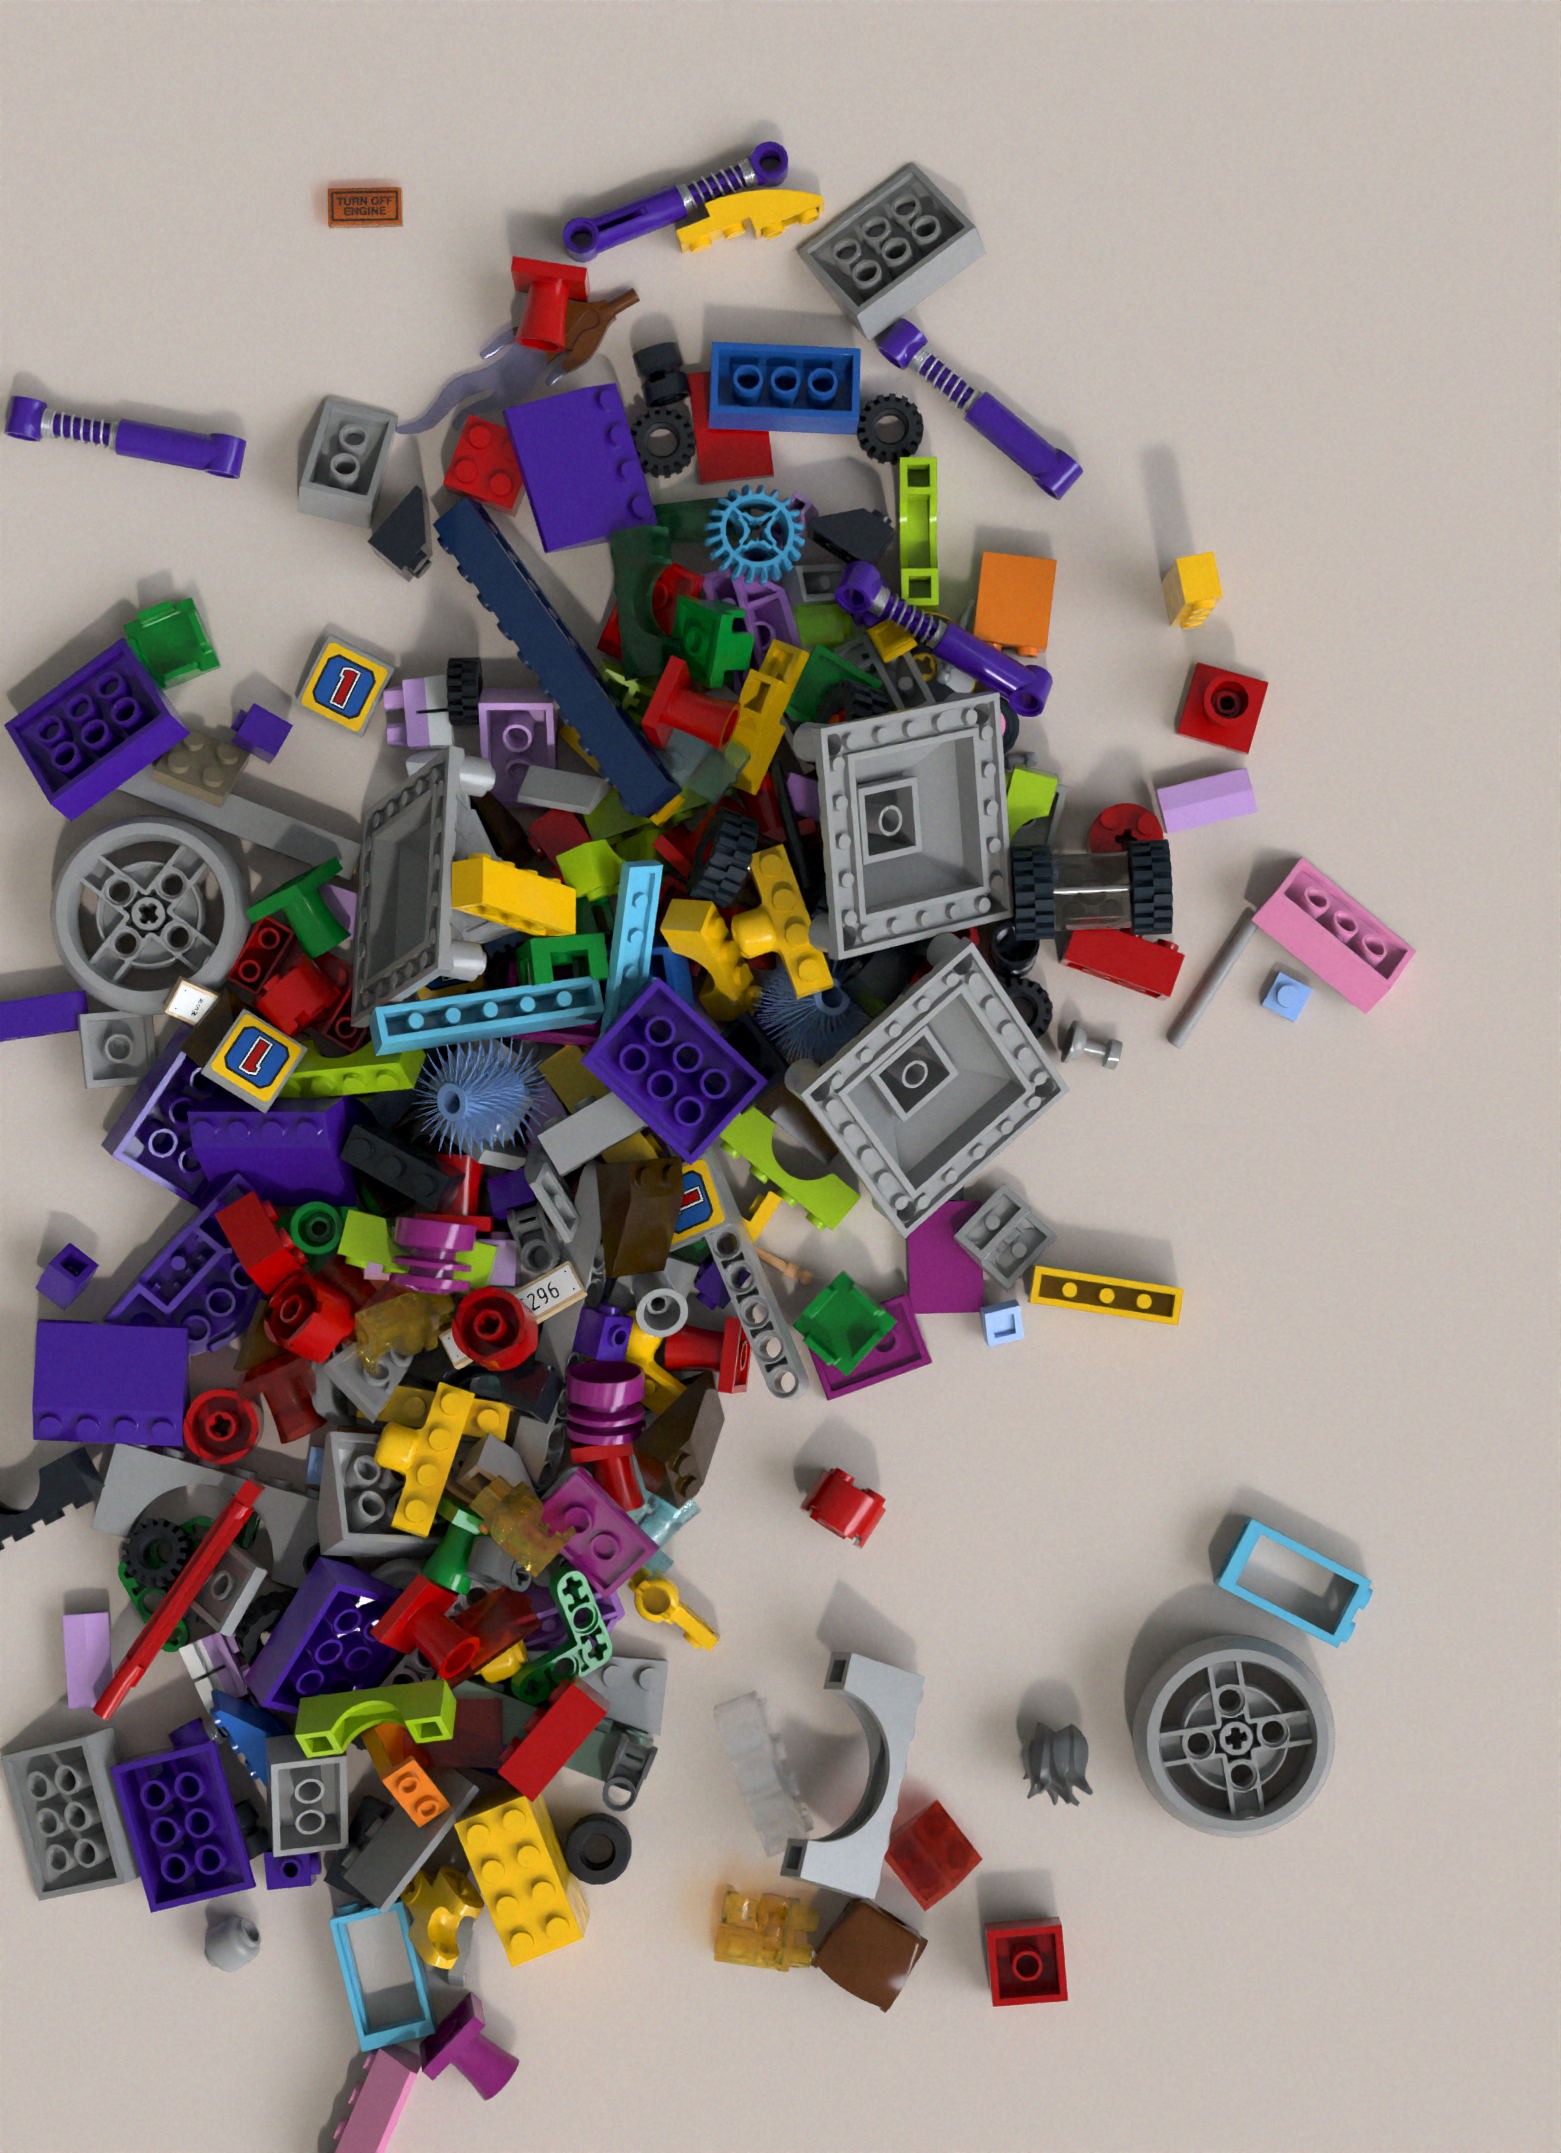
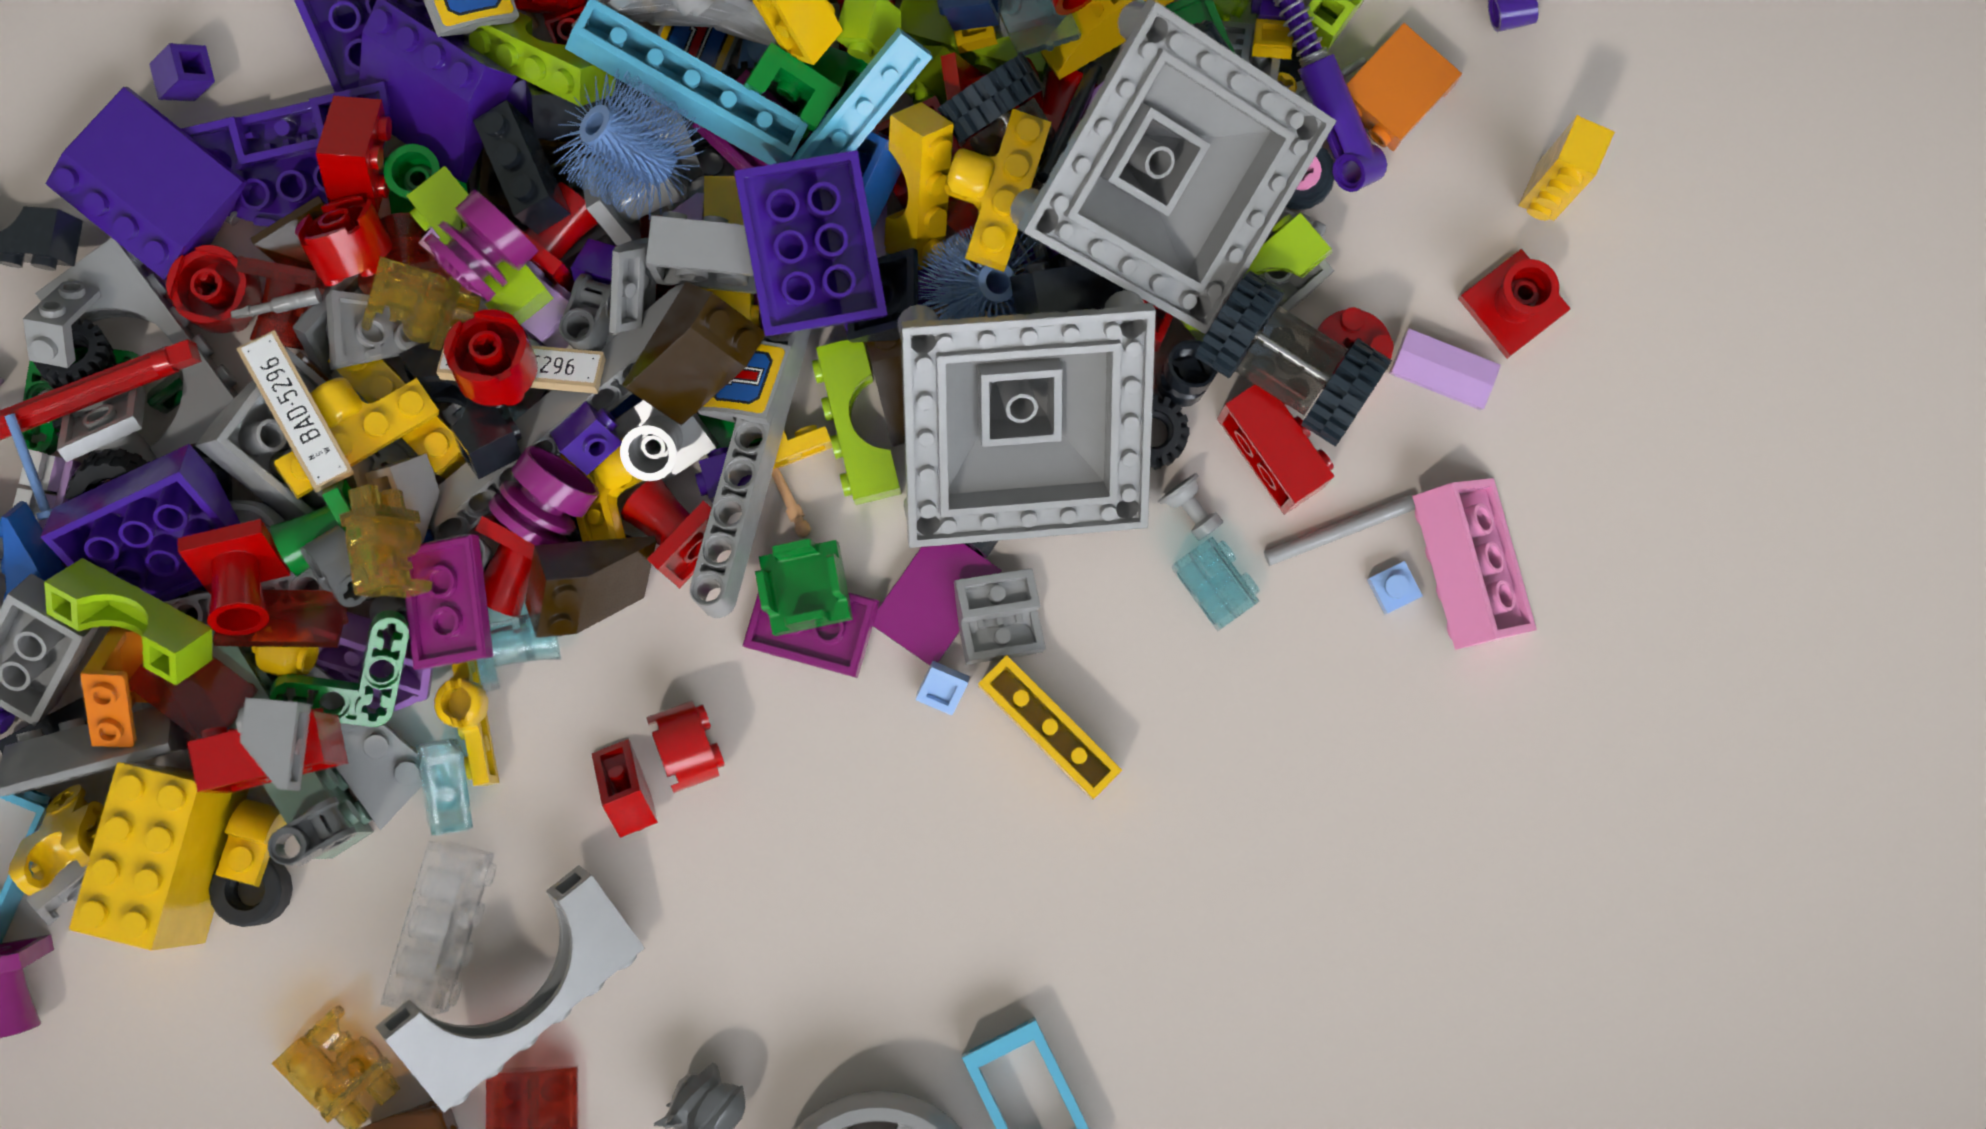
camera: 30 degrees right, 5 degrees down
(133, 1536) = (50, 322): none -> light grey bracket
(233, 1685) = (29, 467): none -> medium blue piece
(293, 1399) = (281, 304): none -> light grey piece
(379, 1475) = (295, 411): none -> white tile
(563, 1721) = (276, 738): none -> light grey slope
(575, 1812) = (247, 844): none -> yellow brick
(687, 1668) = (444, 786): none -> clear light blue brick
(819, 1571) = (623, 788): none -> red slope
(1151, 1093) = (1216, 582): none -> clear light blue brick

